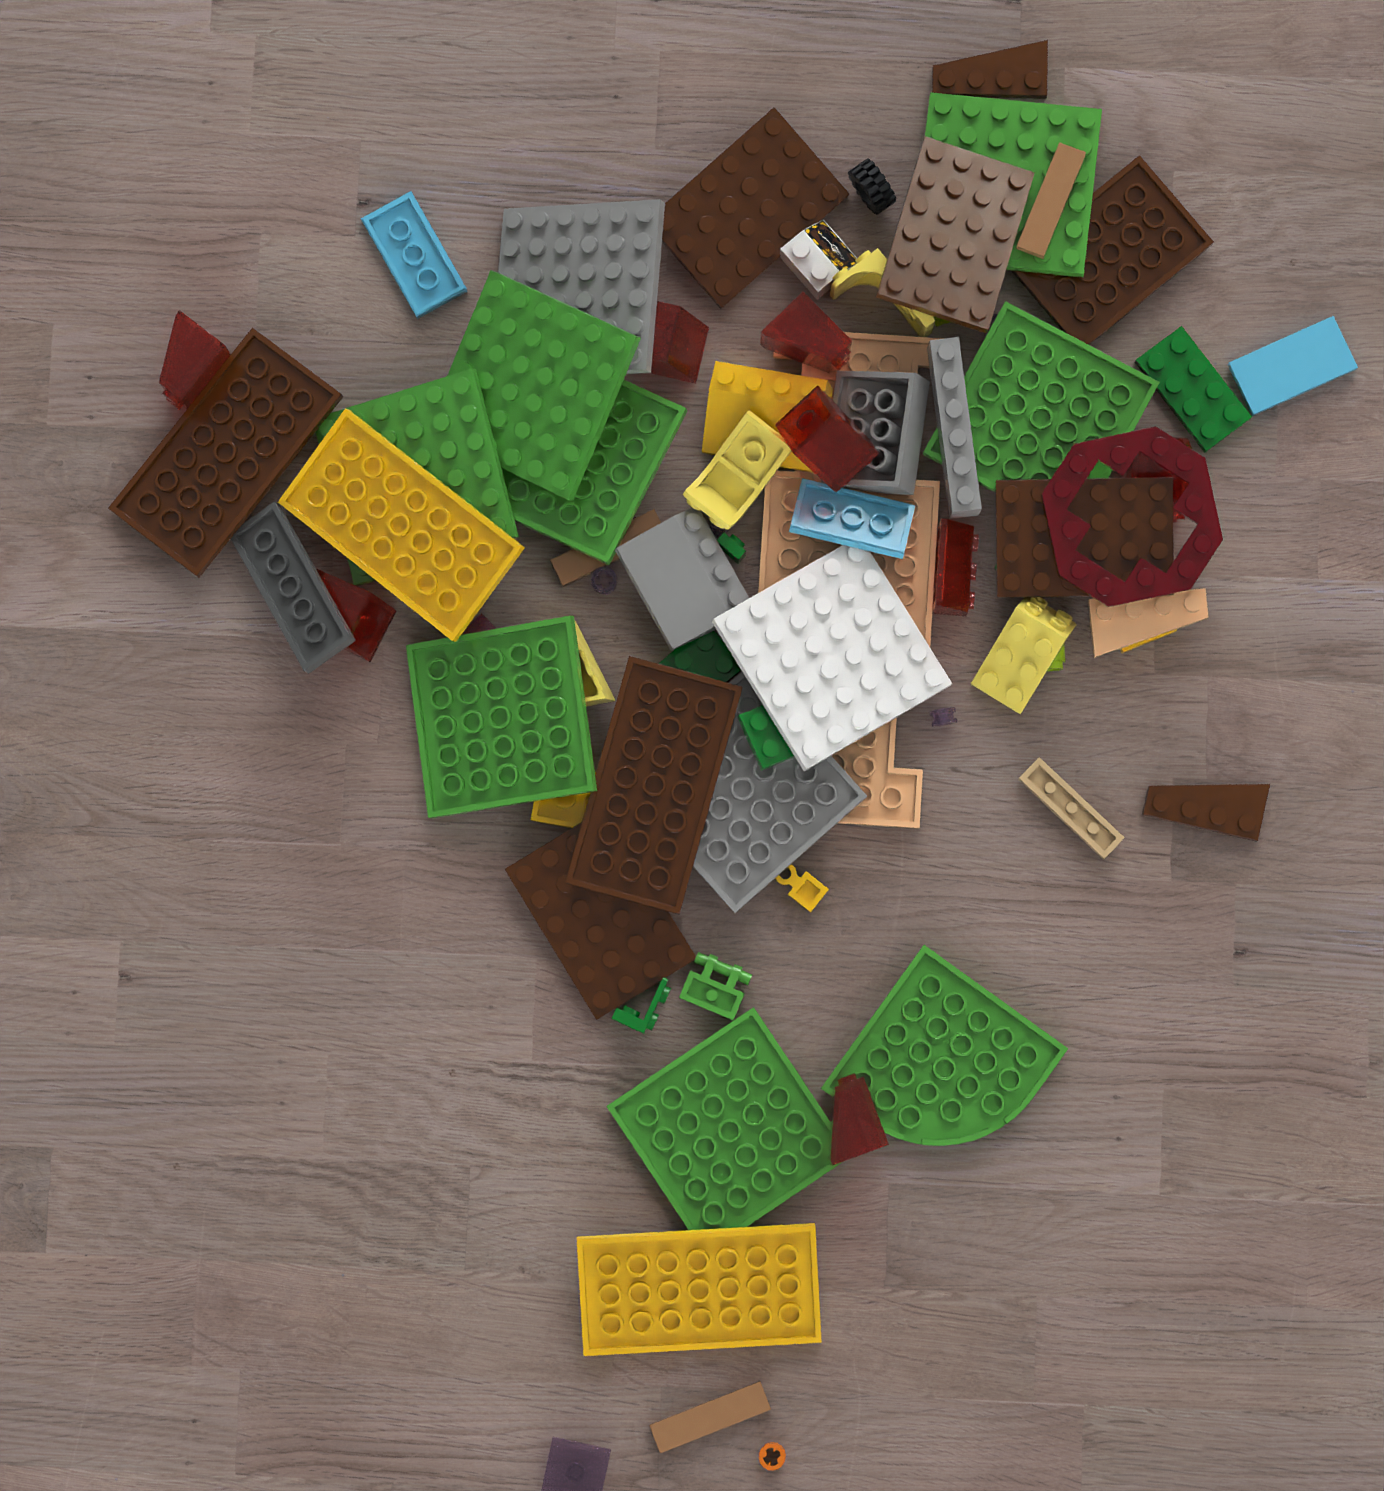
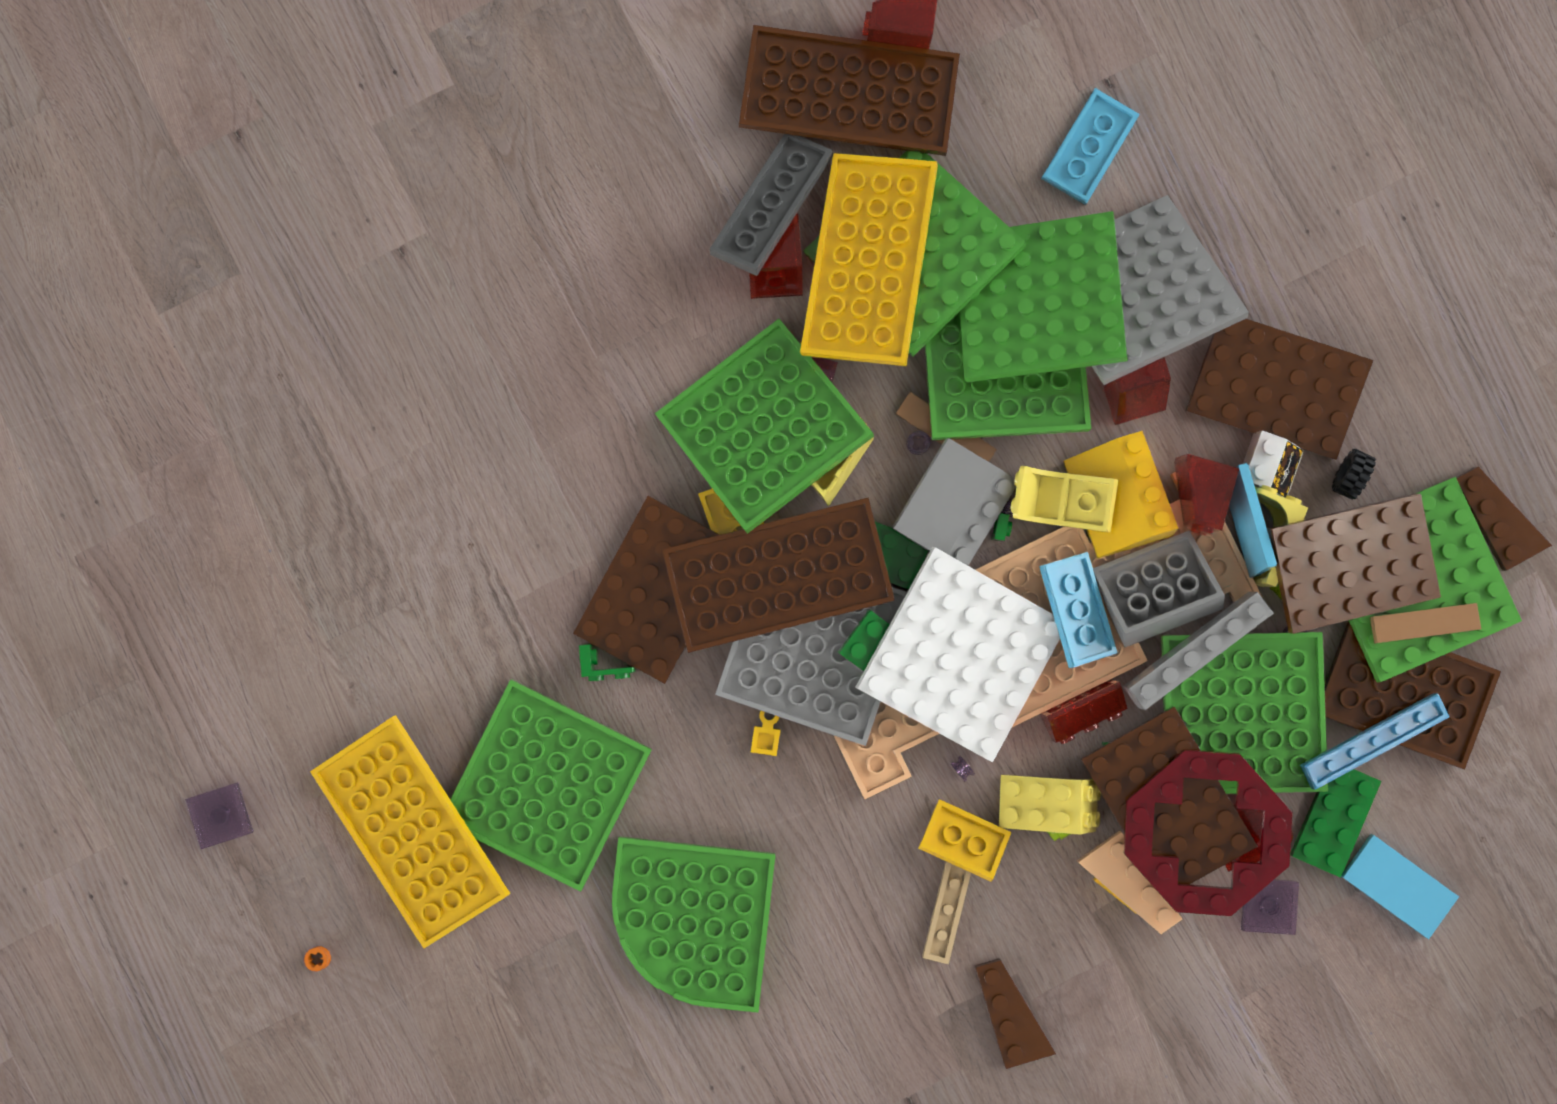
camera: 55 degrees right, 5 degrees up
(710, 1417) = (320, 894): medium nougat tile -> none
(711, 994) = (643, 710): bright green plate -> none
(826, 439) = (1130, 554): clear red slope -> none
(854, 1121) = (602, 881): clear red slope -> none
(863, 310) = (1251, 525): none -> medium azure tile
(1013, 753) = (965, 840): none -> yellow plate
(1137, 311) = (1374, 741): none -> dark azure tile
(1243, 498) = (1272, 909): none -> clear purple plate

